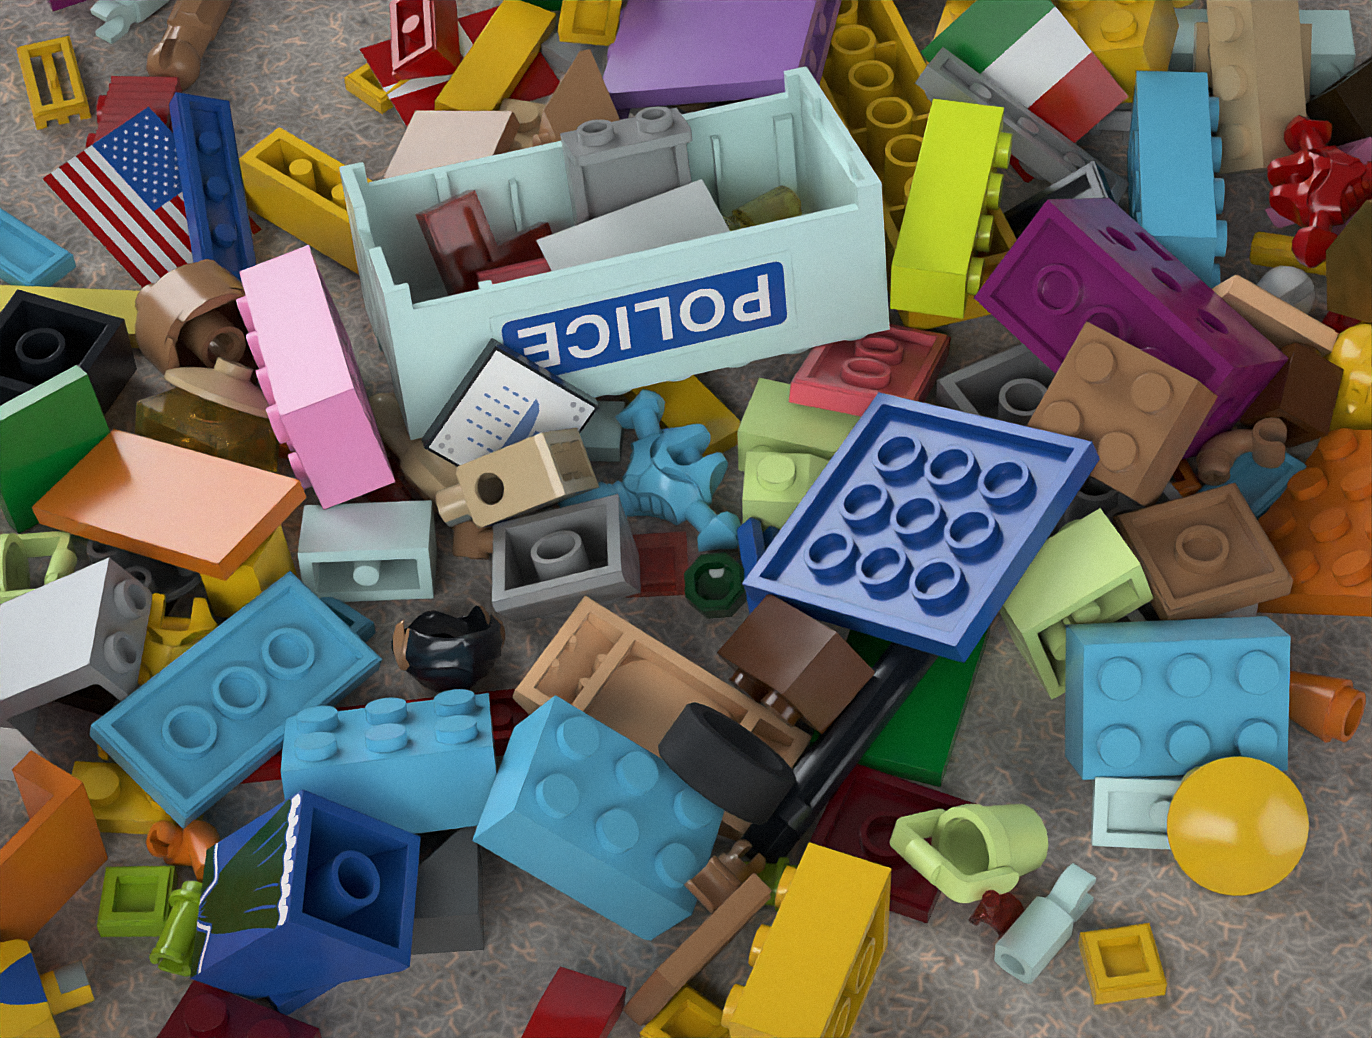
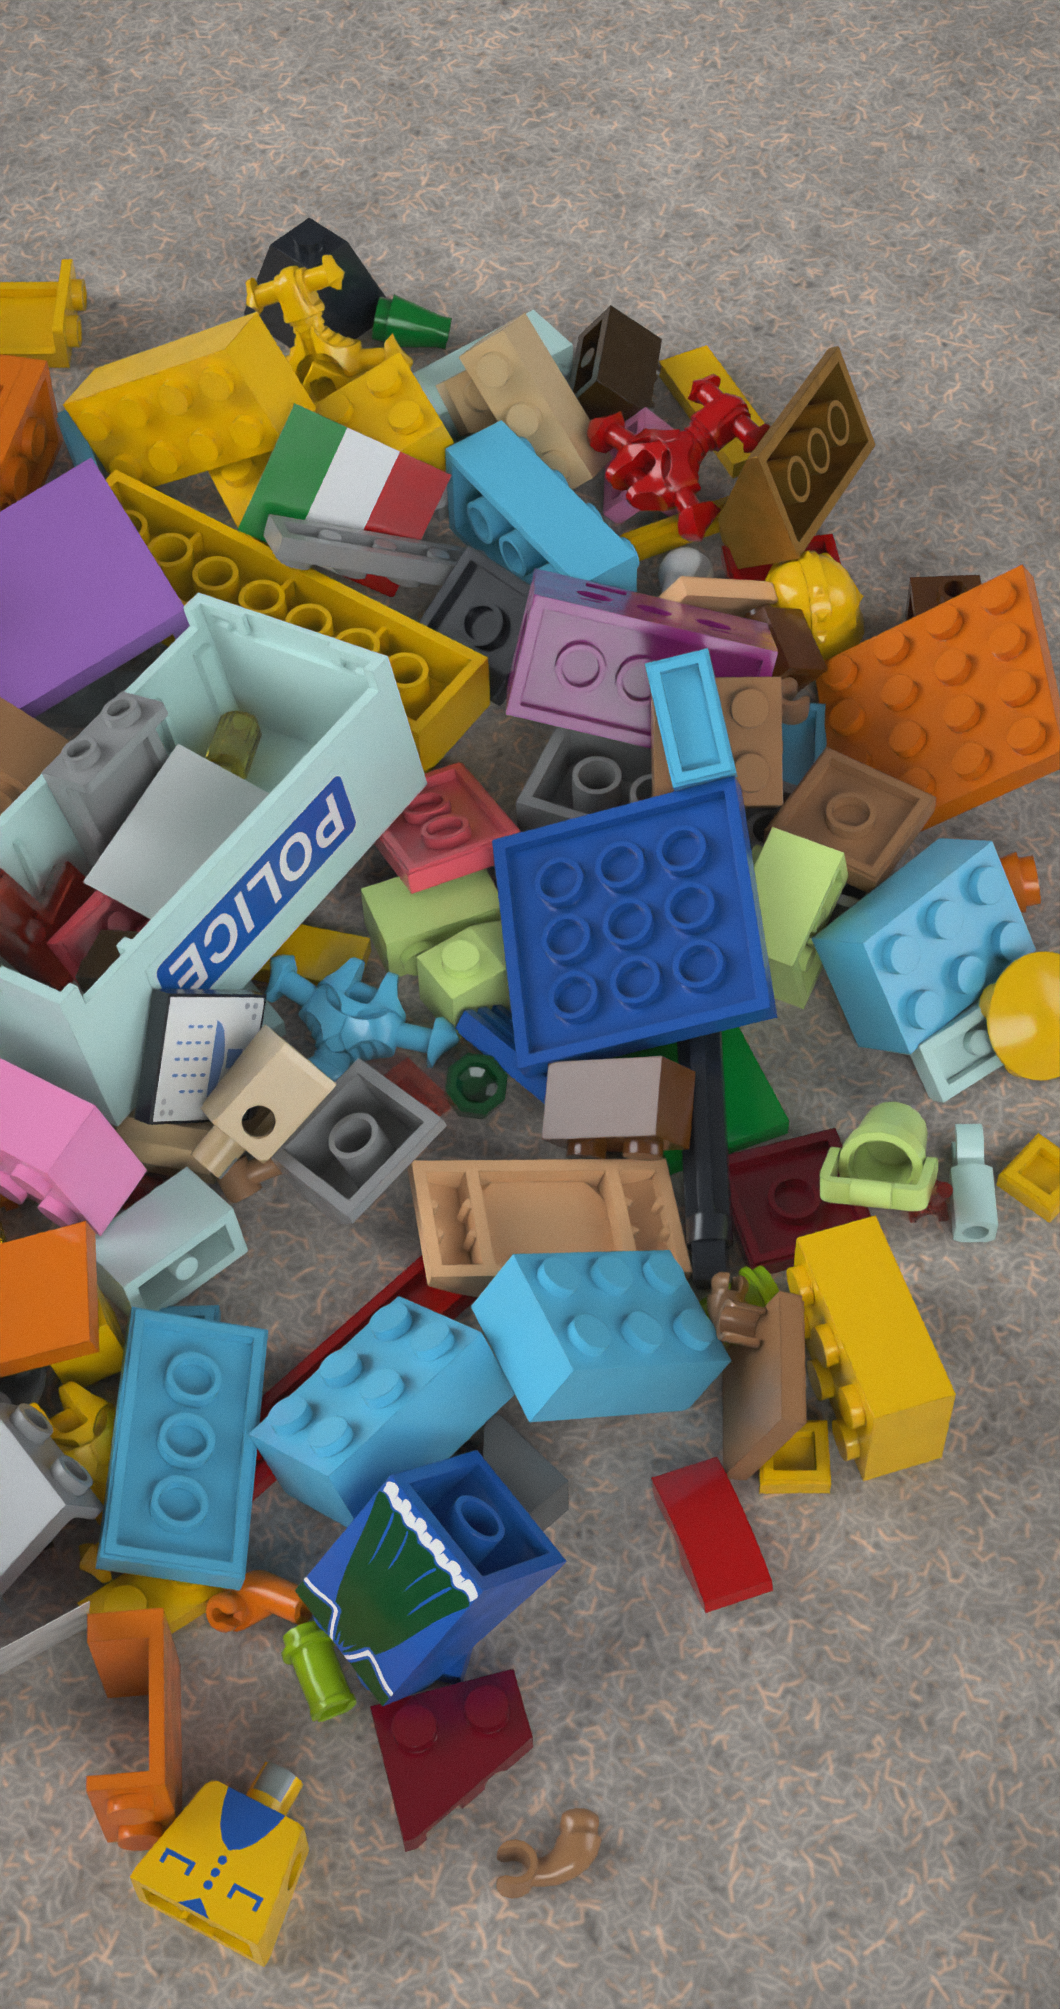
camera: 40 degrees left, 5 degrees up
(135, 900) = (248, 1680): lime tile -> none
(449, 650) = (318, 1282): black hair -> none
(726, 763) = (658, 1221): black tyre -> none
(948, 209) = (379, 609): neon yellow brick -> none
(1089, 372) = (690, 719): none -> medium azure tile

